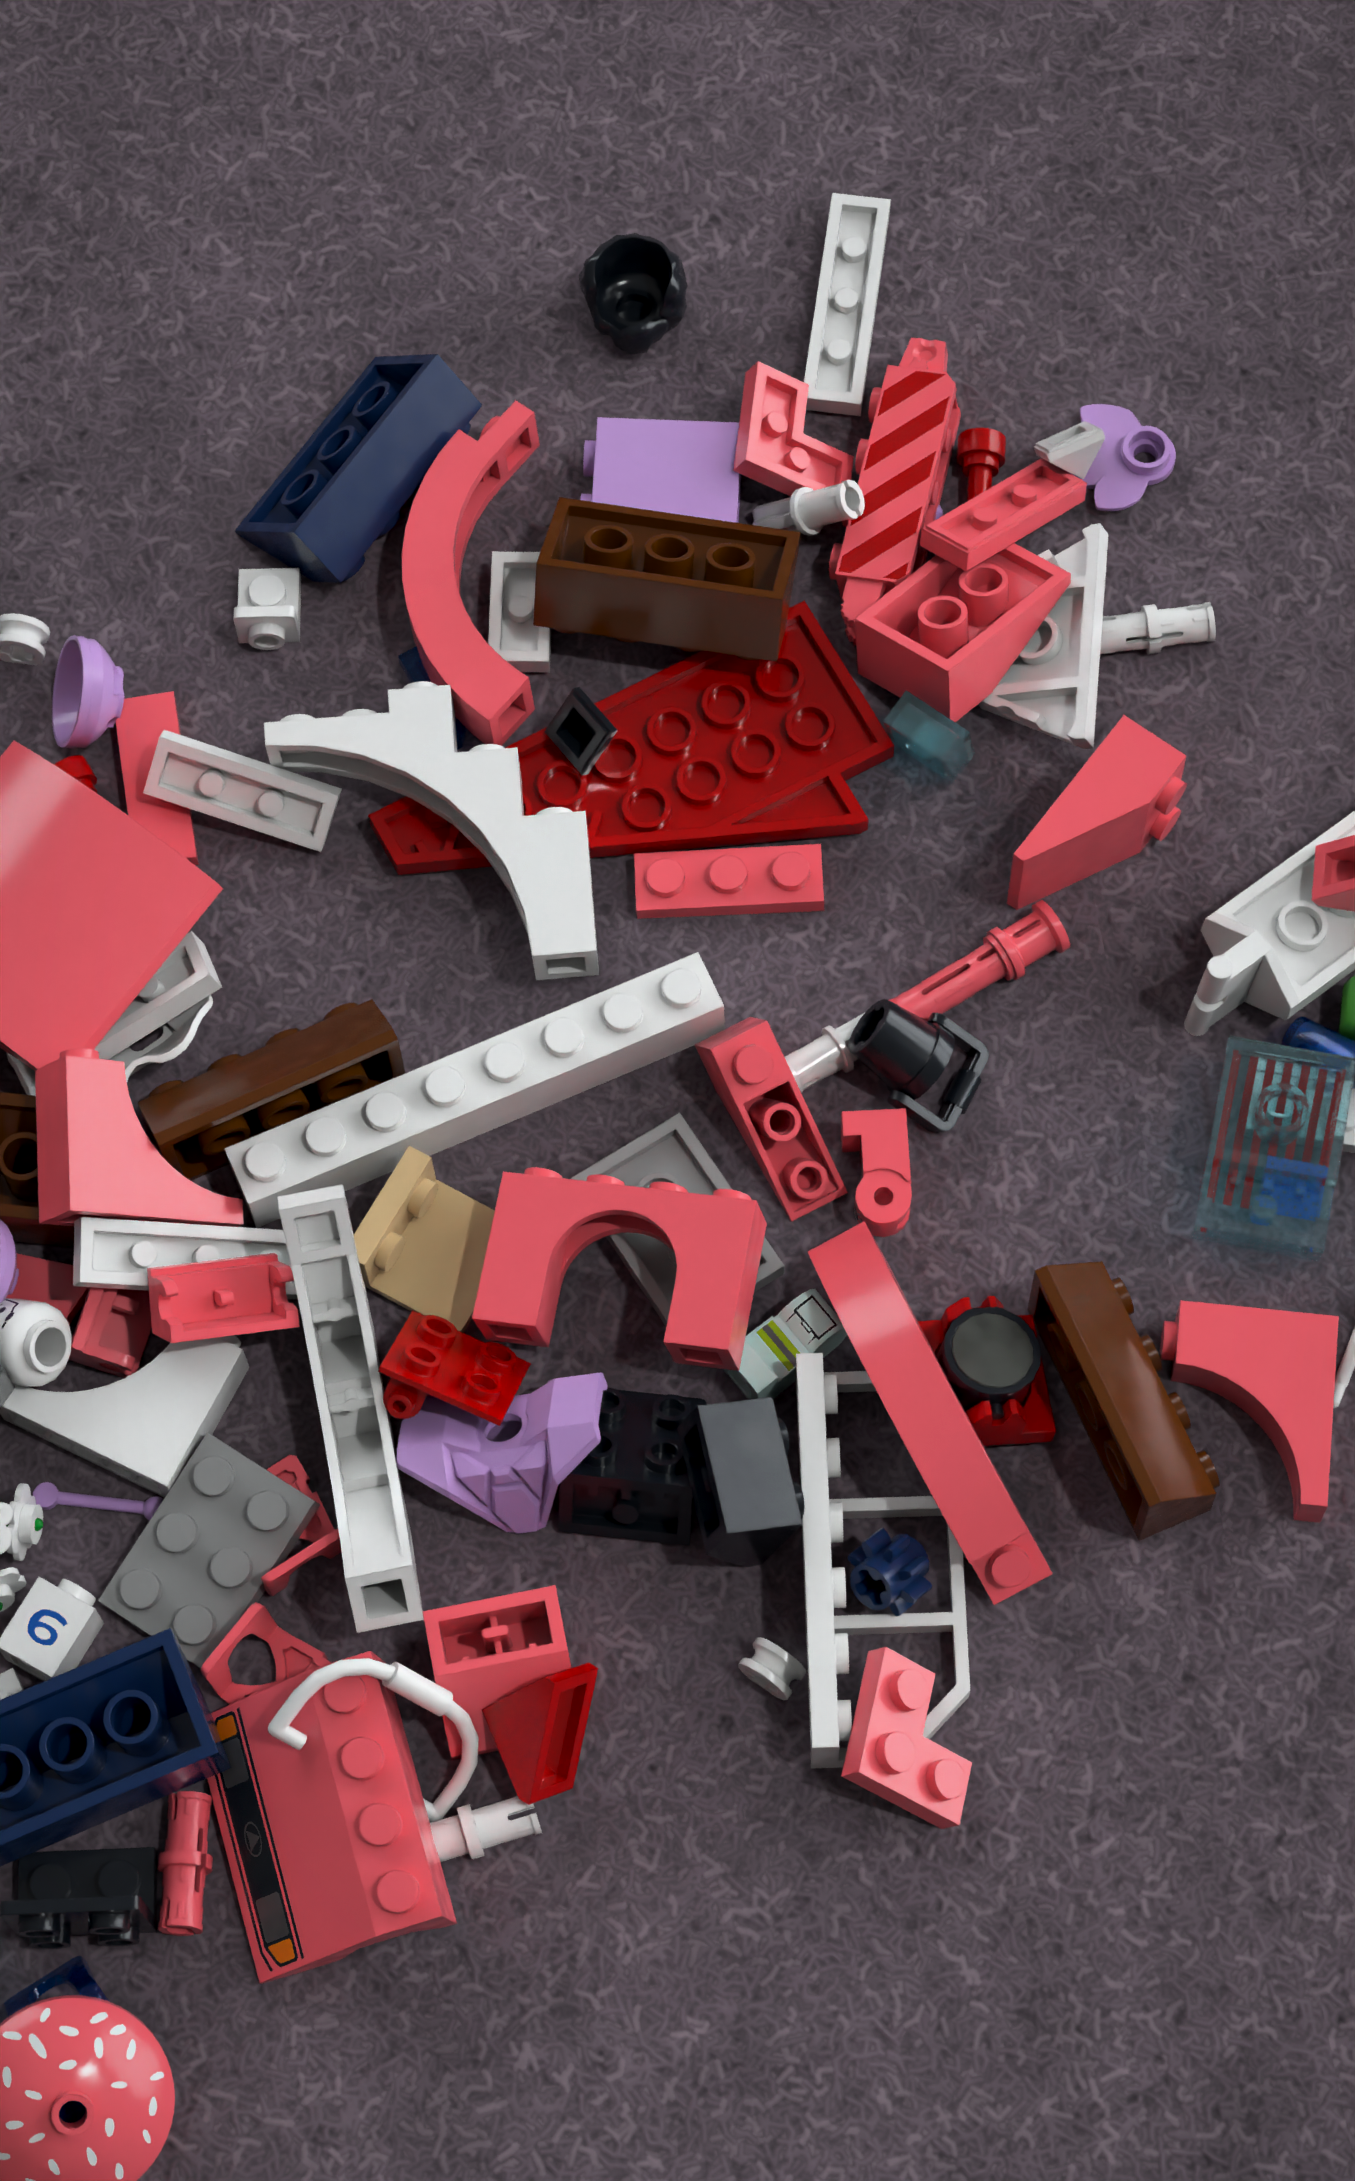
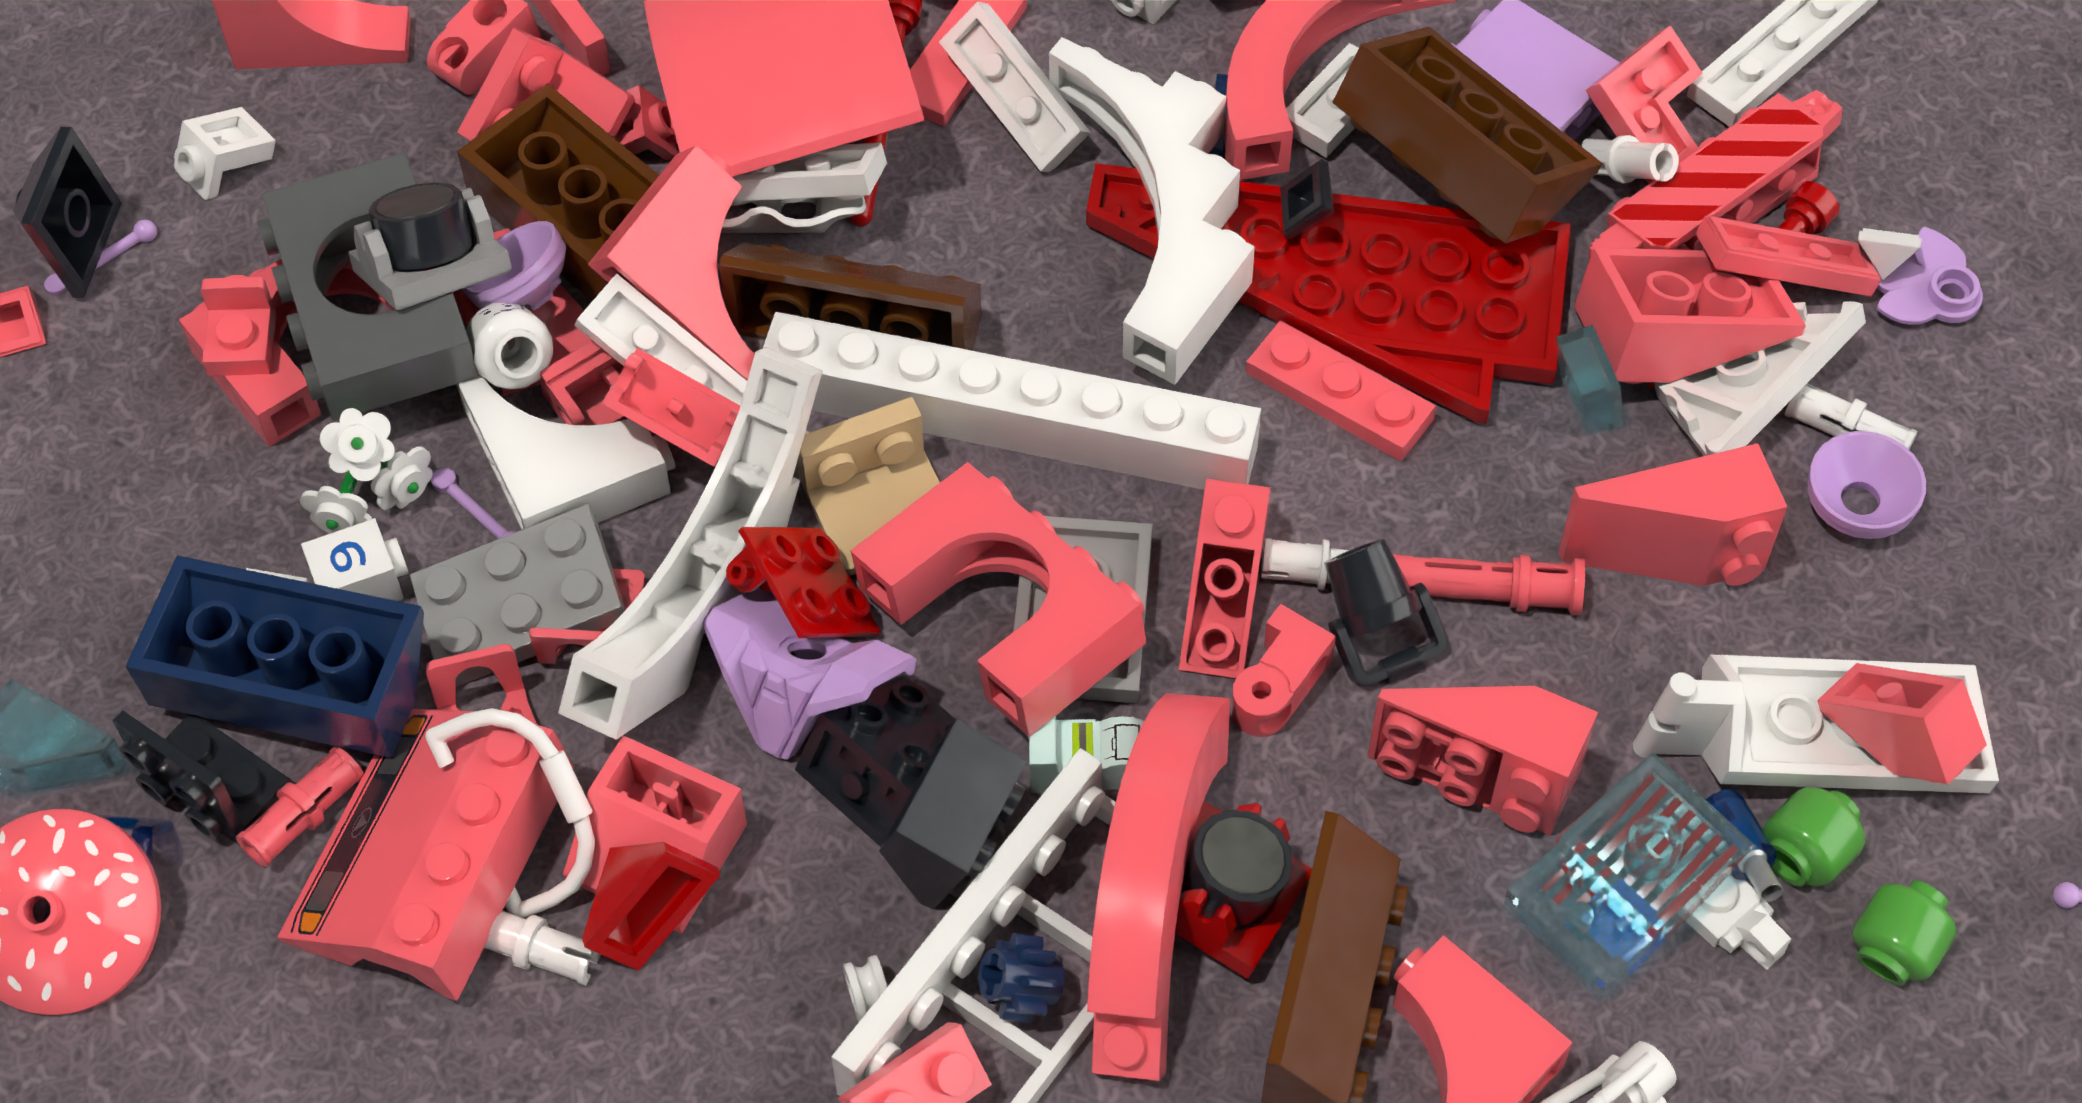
camera: 35 degrees right, 10 degrees down
(1112, 1113) = (1486, 747): none -> coral slope
(1211, 655) = (1872, 464): none -> lavender piece

